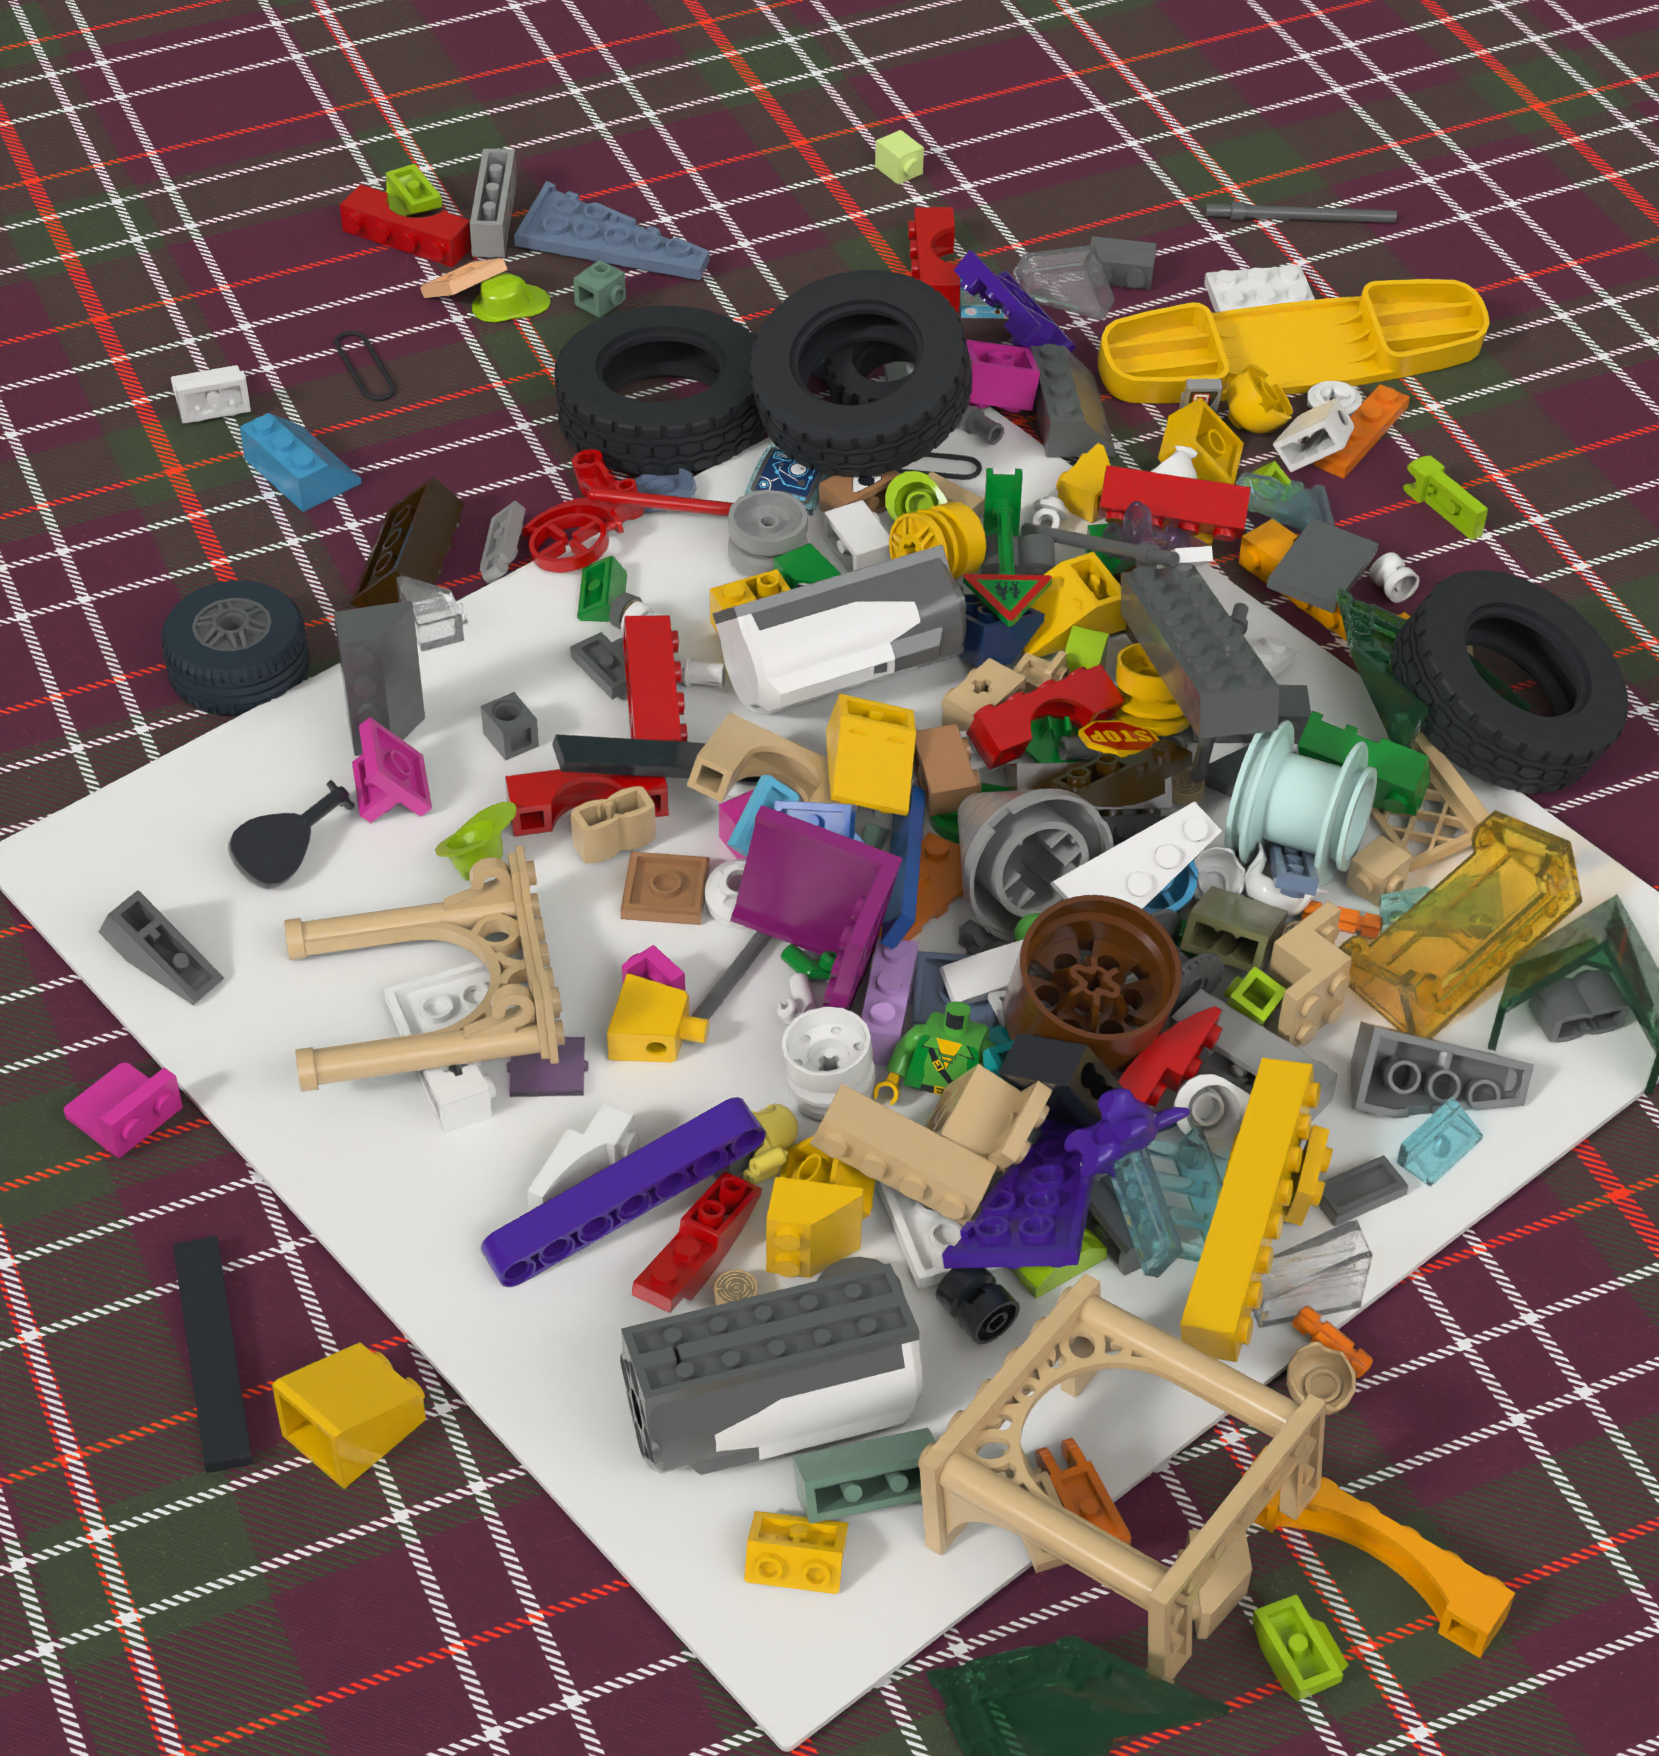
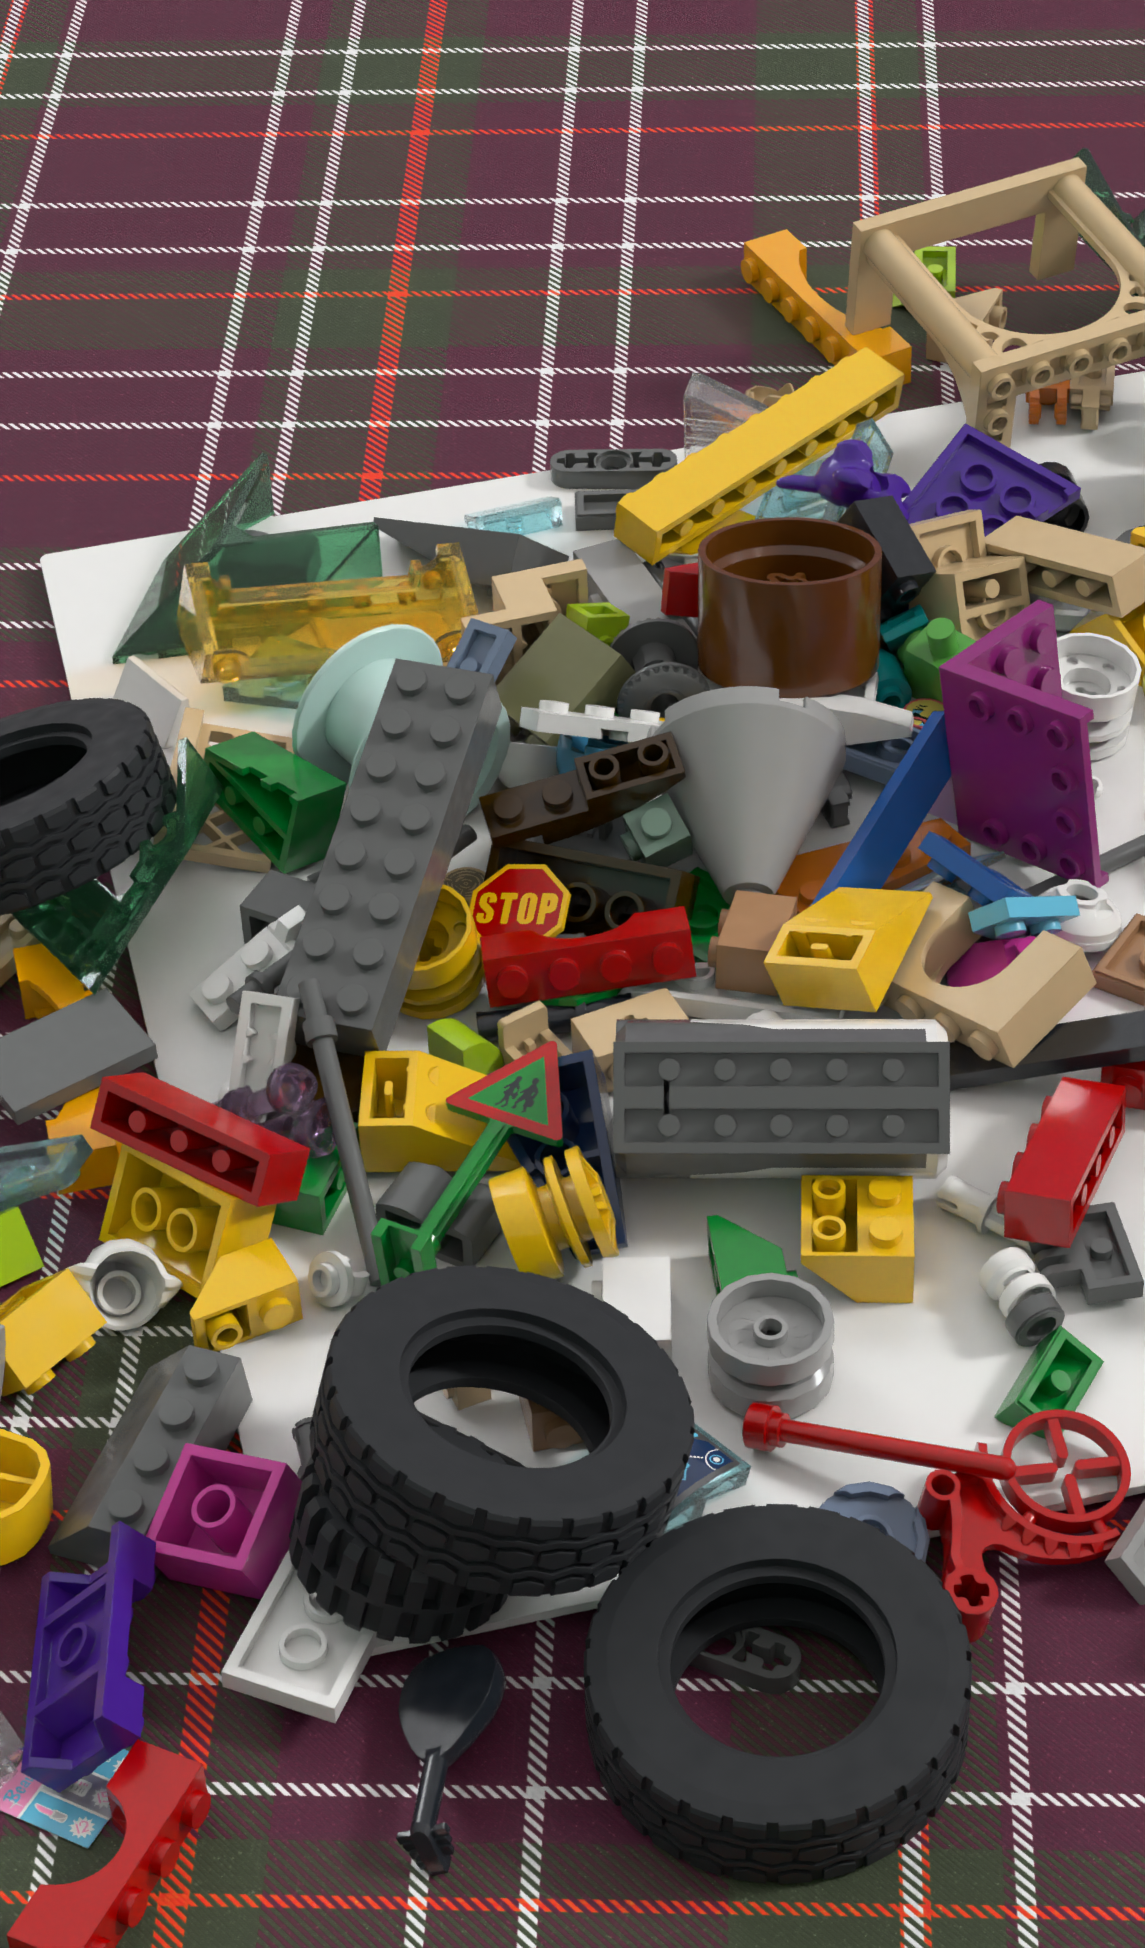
camera: 150 degrees left, 5 degrees down
(1413, 1221) = (589, 467): none -> dark grey beam

